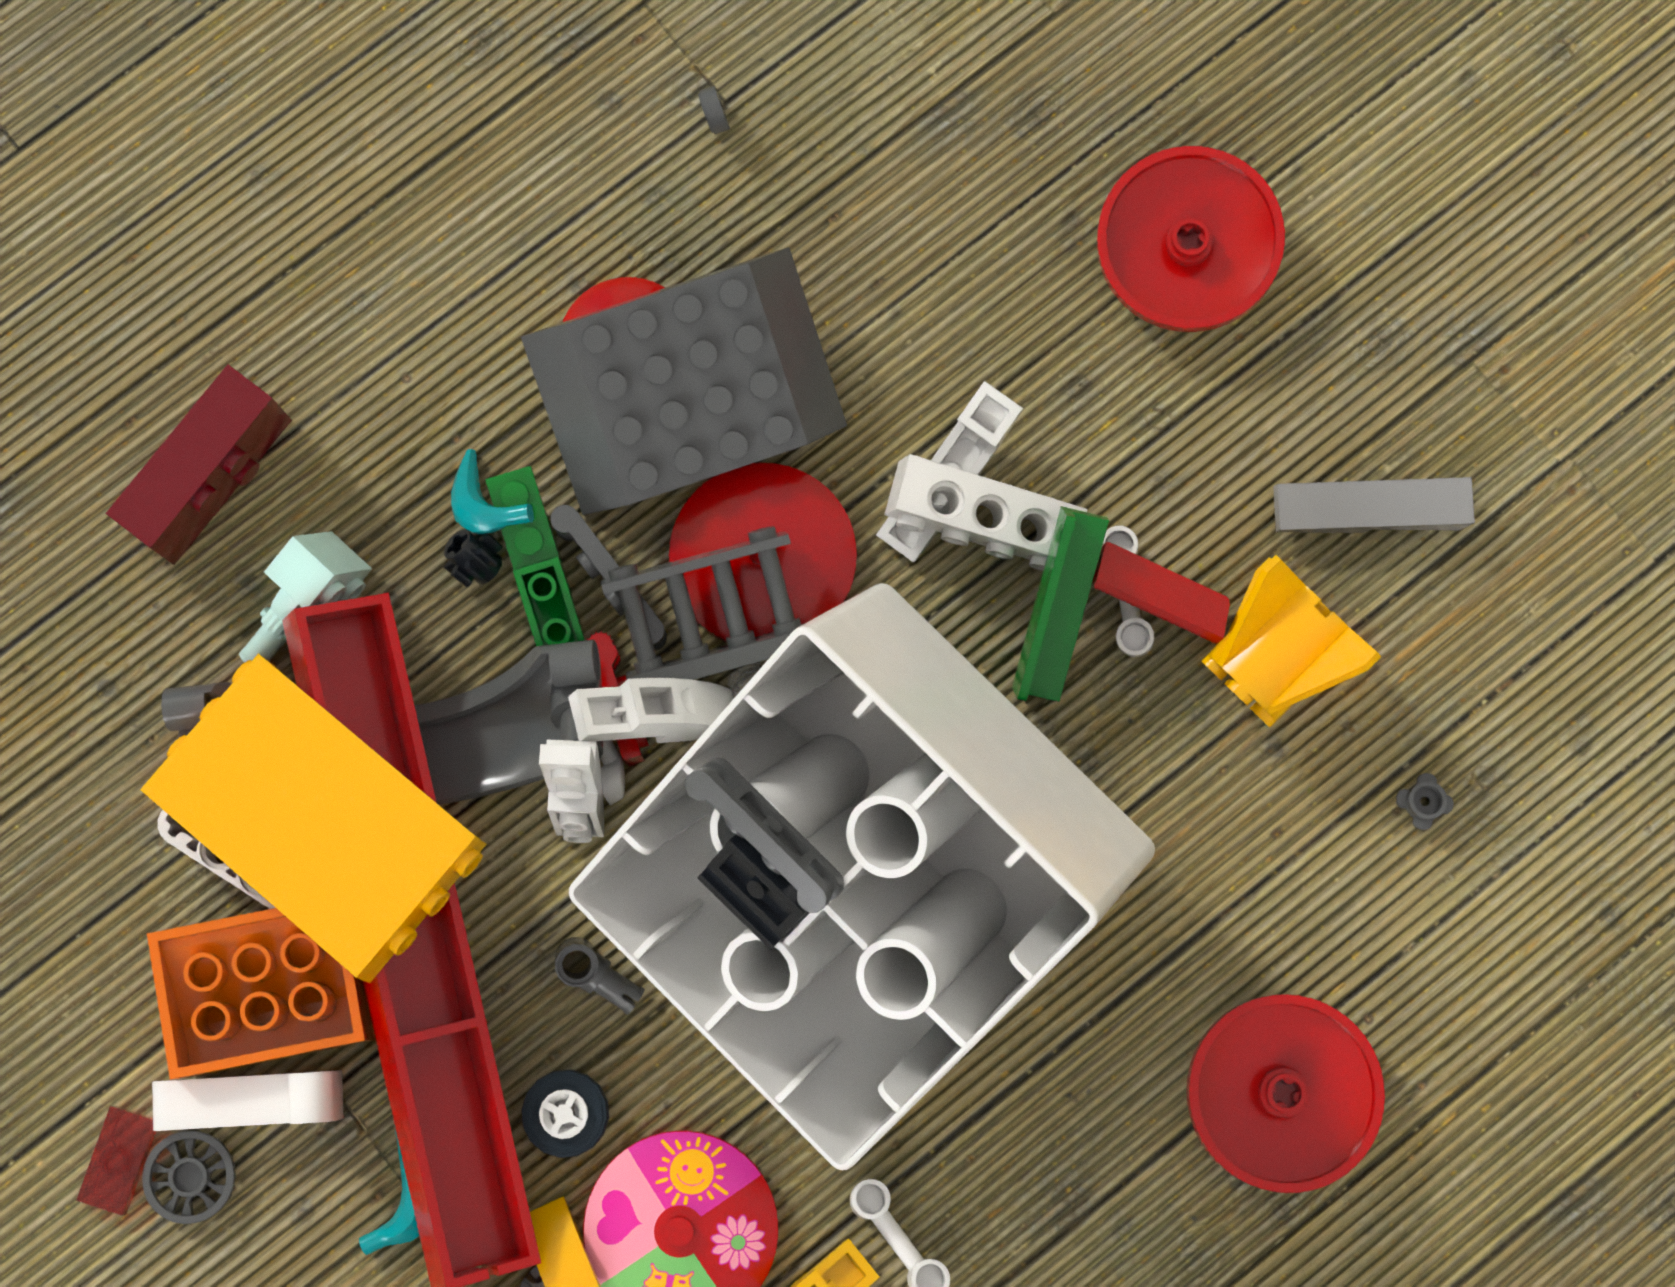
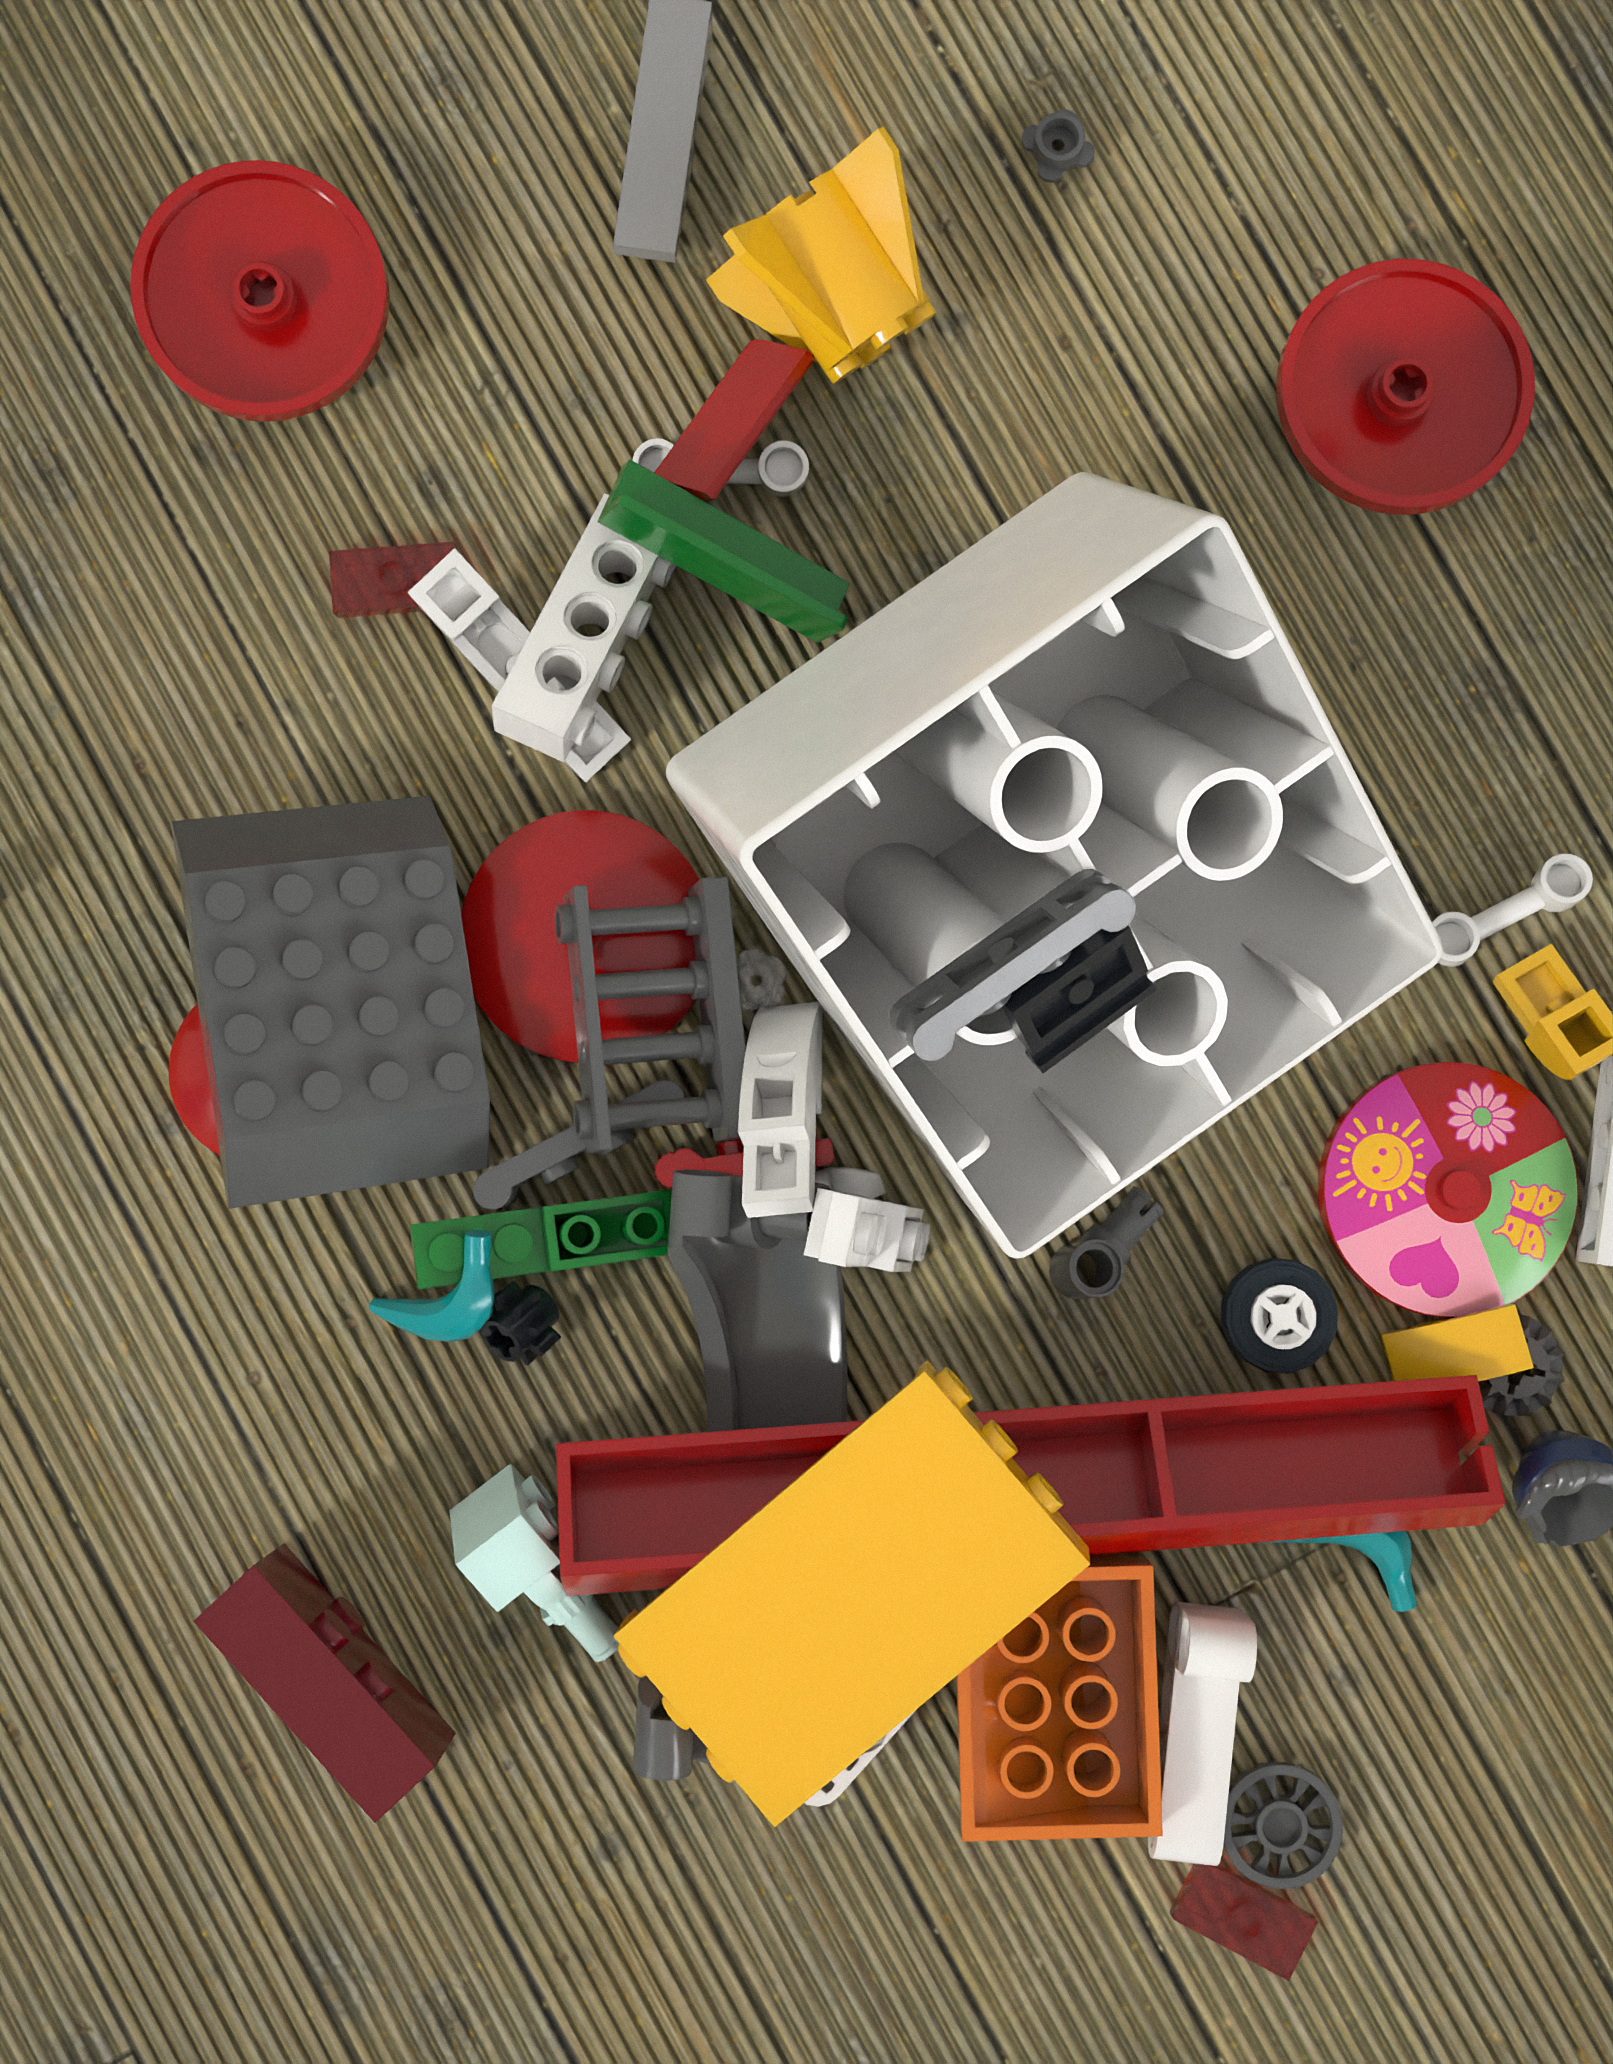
camera: 80 degrees left, 5 degrees up
(1001, 363) = (379, 577): none -> clear red plate

